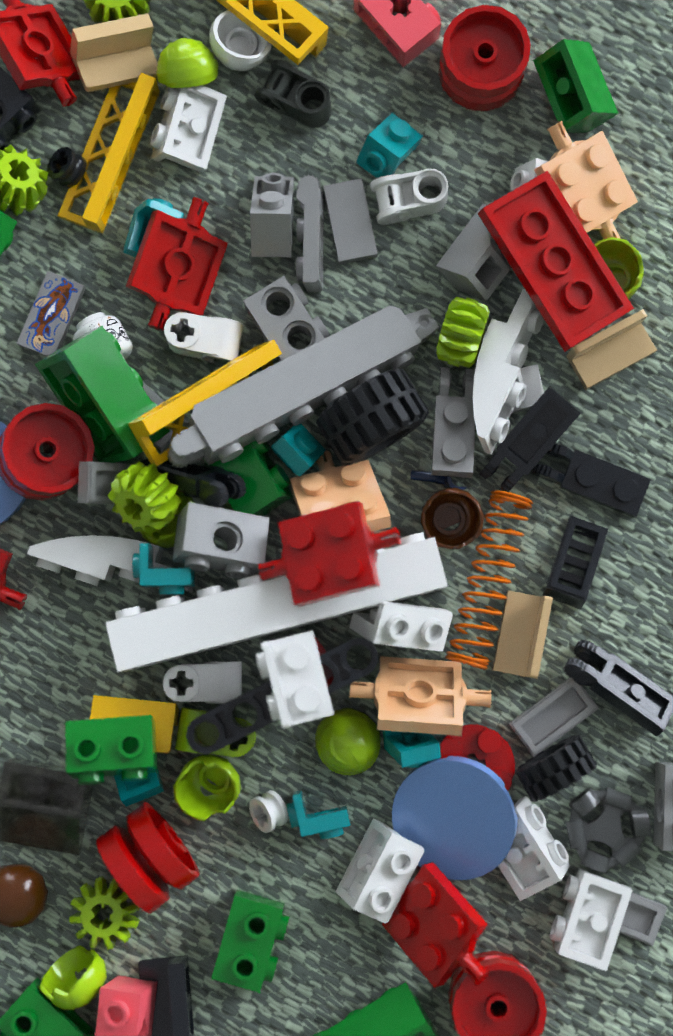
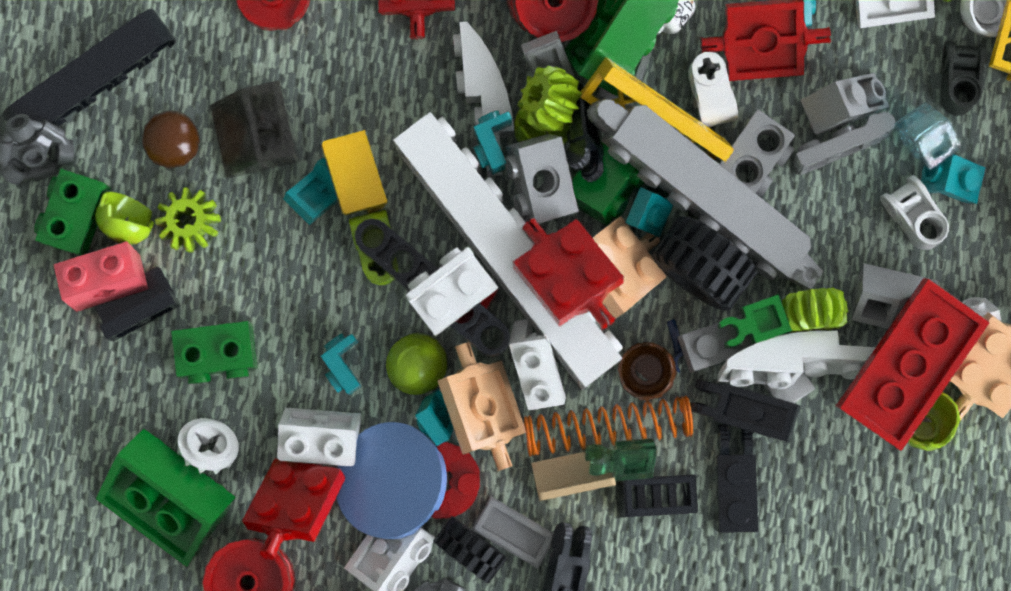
camera: 65 degrees right, 0 degrees up
(111, 749) = (327, 163): green brick -> none
(147, 858) = (248, 234): red wheel -> none
(196, 774) = (335, 247): lime hair -> none
(212, 681) = (416, 225): white piece -> none
(268, 811) = (329, 320): white bush -> none
(326, 984) = (204, 432): none -> white gear
(339, 151) = (928, 135): none -> clear light blue brick
(350, 221) = (871, 172): light grey tile -> none
(452, 387) = (760, 321): none -> green plate
(533, 576) = (627, 461): none -> clear green plate
(611, 350) = (857, 450): tan panel -> none

